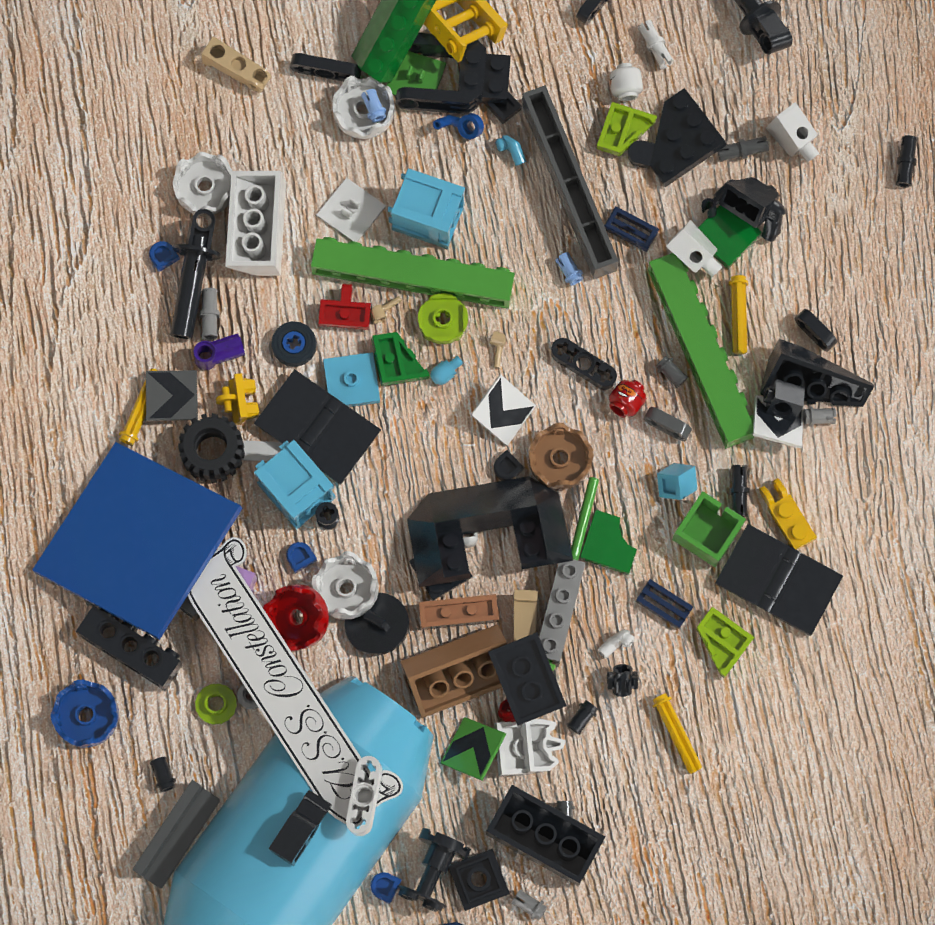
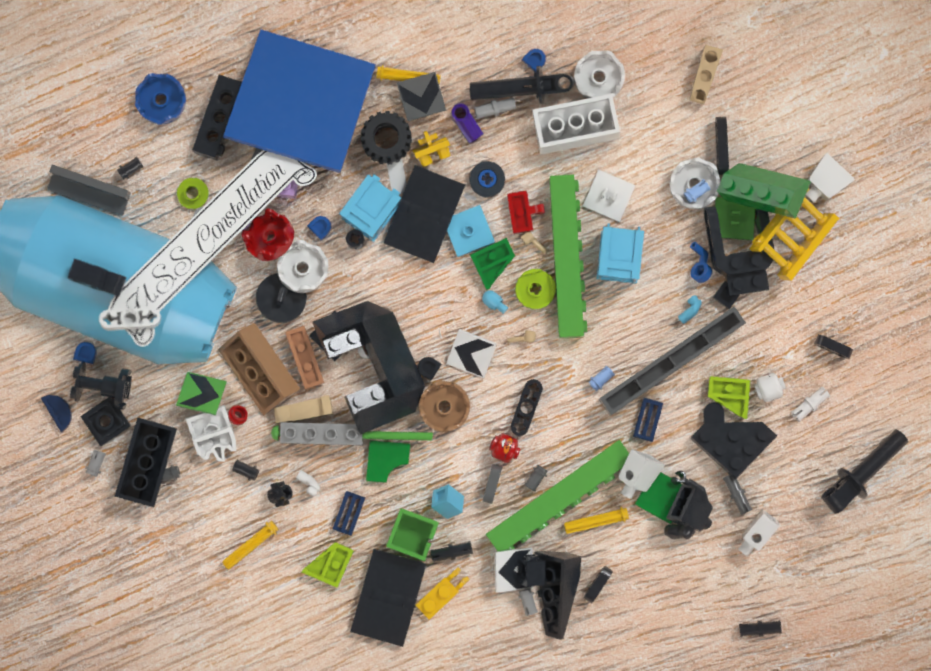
camera: 80 degrees right, 10 degrees up
(527, 678) = (259, 421): black plate -> none

